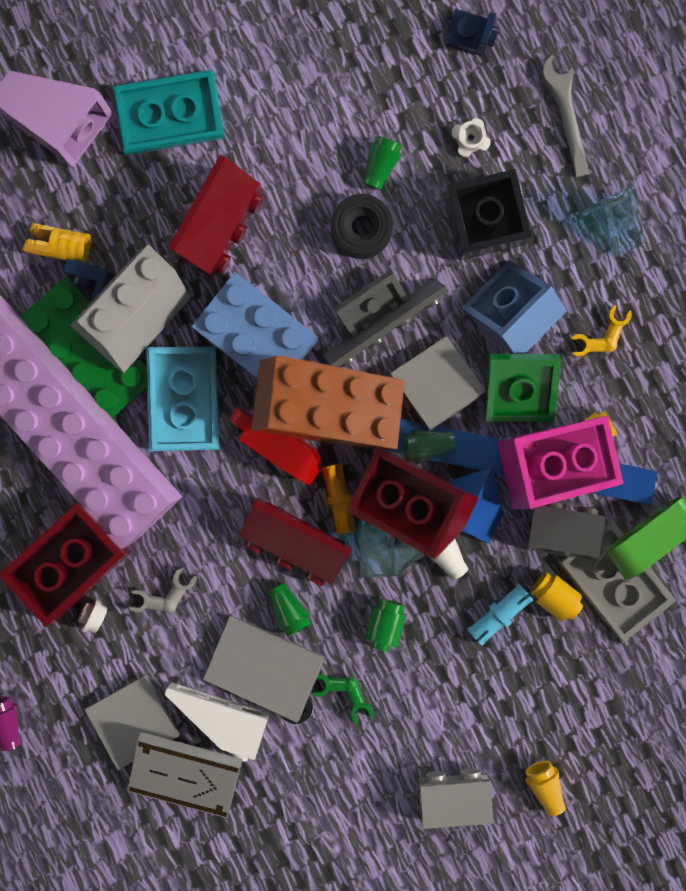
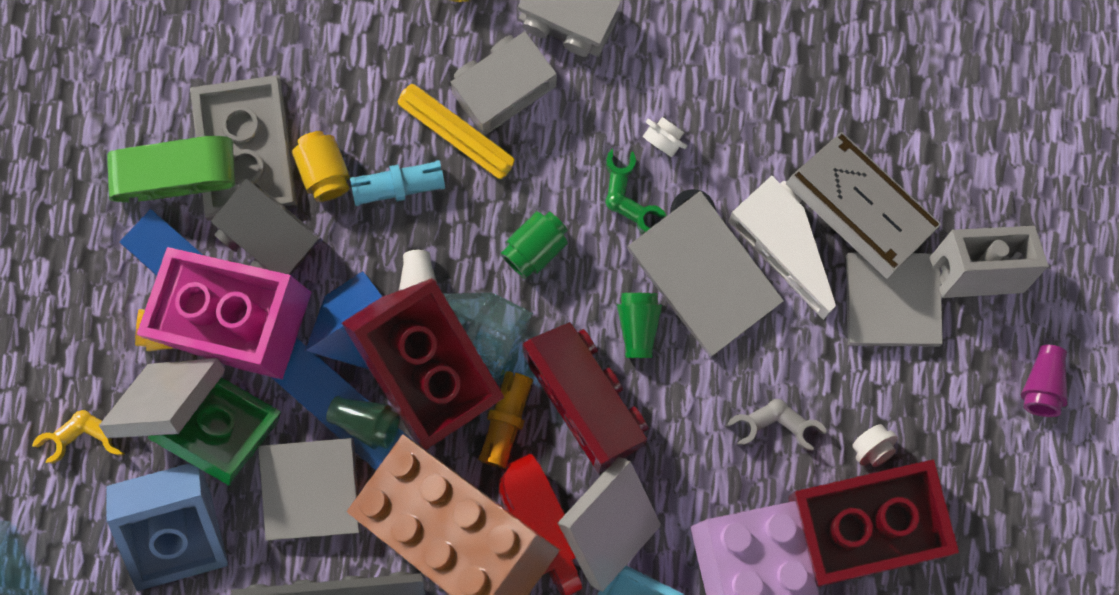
camera: 150 degrees left, 10 degrees down
(85, 778) = (987, 263): none -> light grey brick
(232, 468) = (610, 523): none -> light grey tile
(342, 747) = (664, 136): none -> white plate
(470, 723) = (503, 82): none -> light grey brick
(482, 672) = (456, 131): none -> yellow axle
(565, 384) = (162, 398): none -> light grey tile

